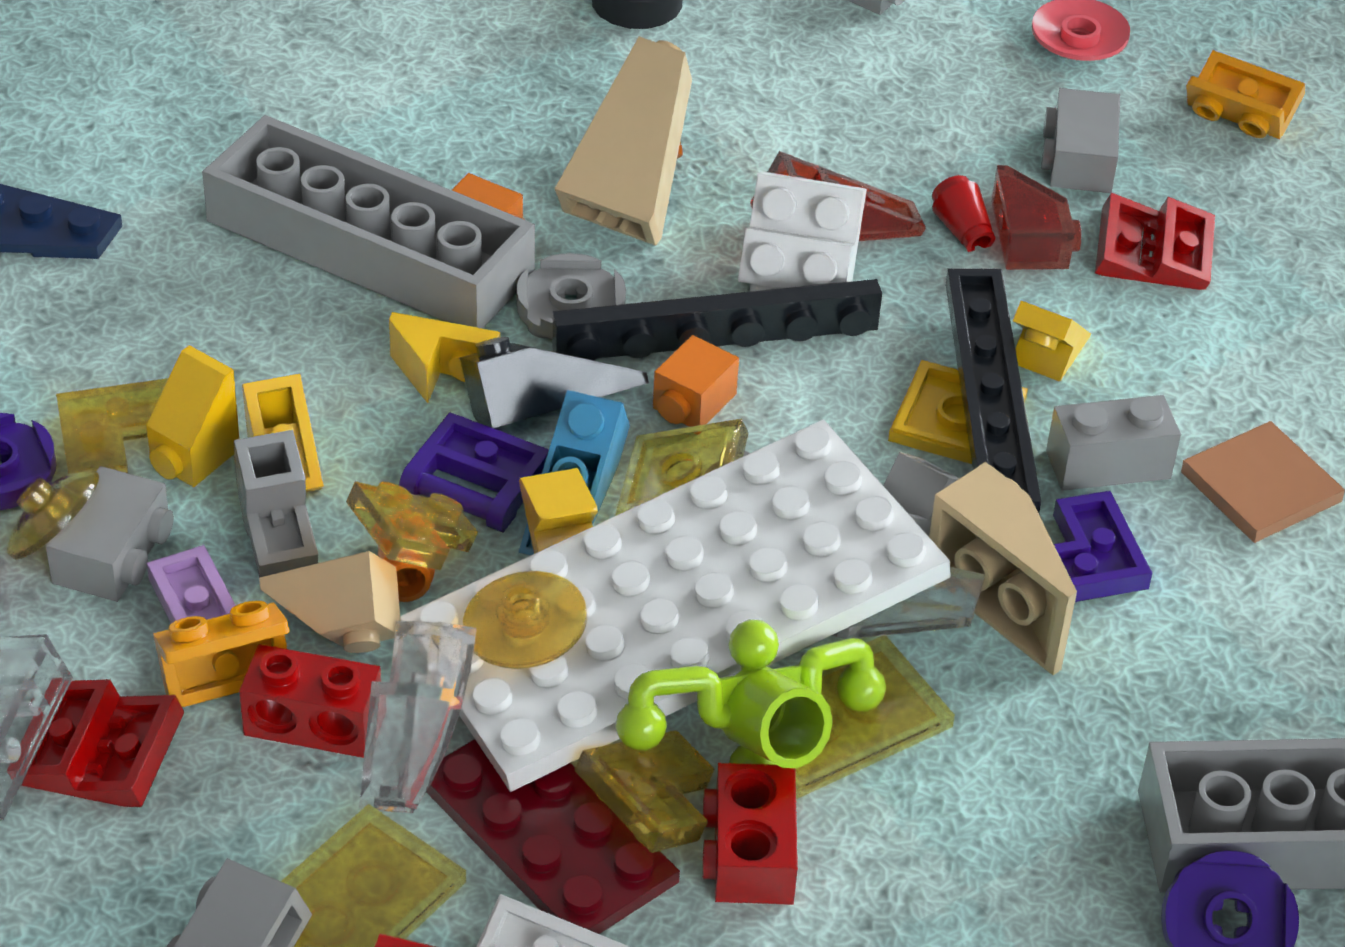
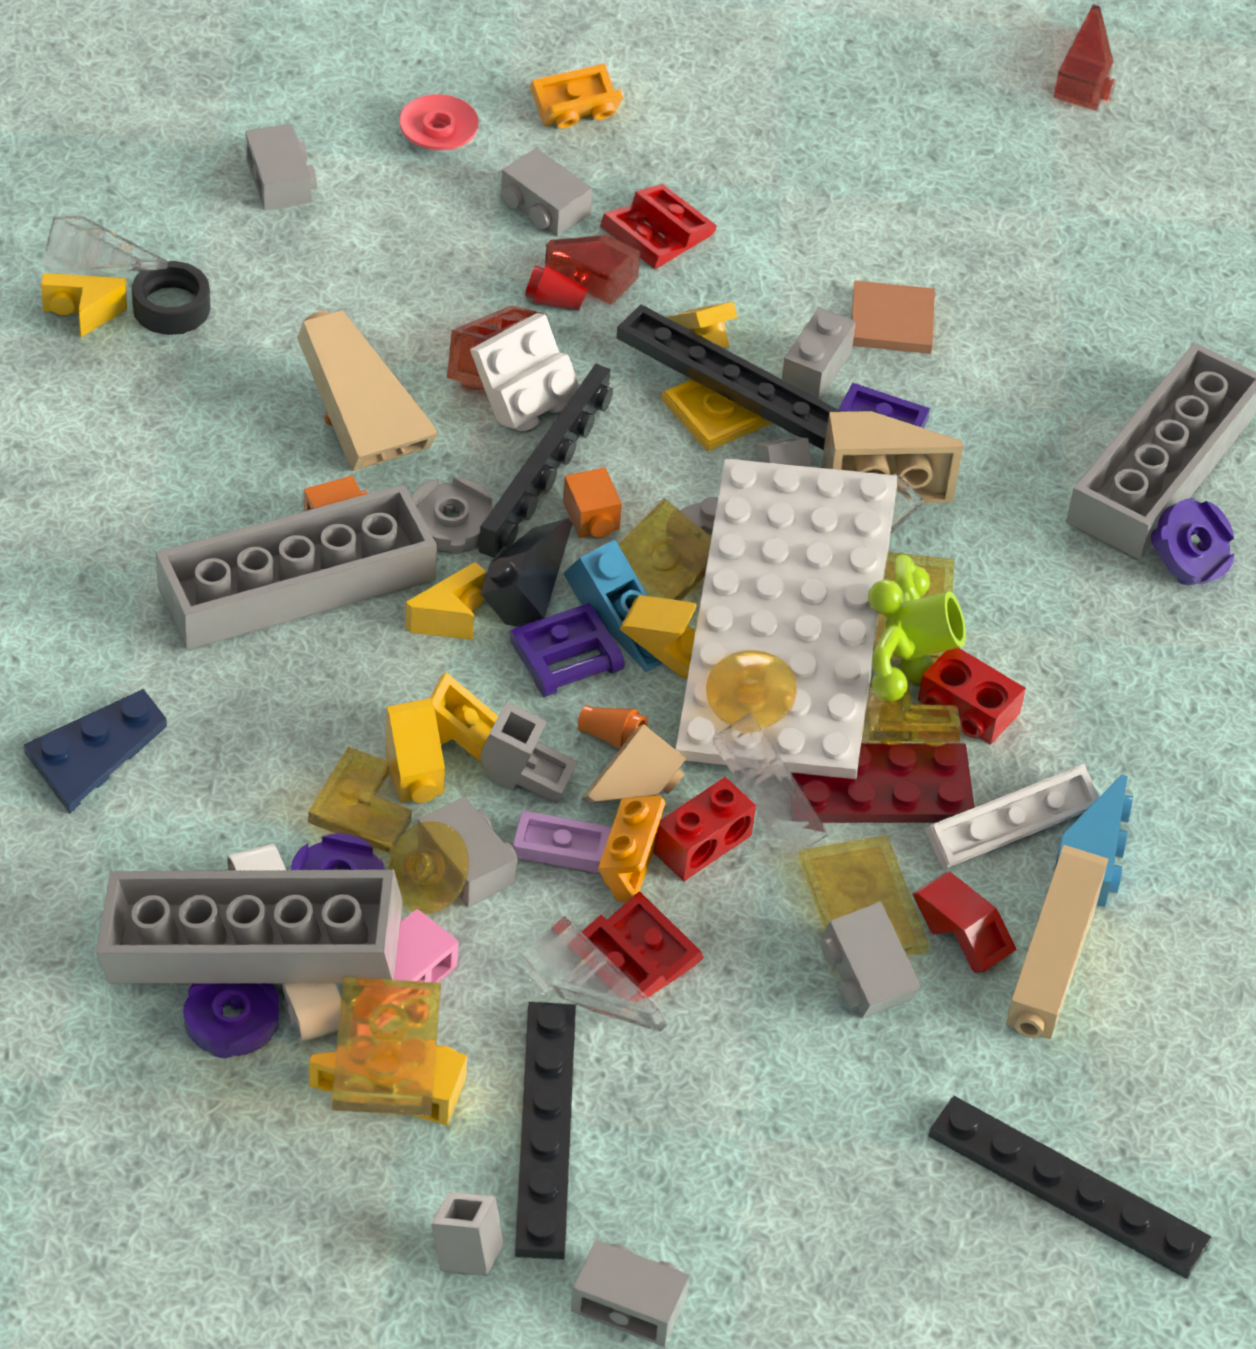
camera: 55 degrees left, 5 degrees up
(410, 525) = (610, 697): clear yellow plate -> none

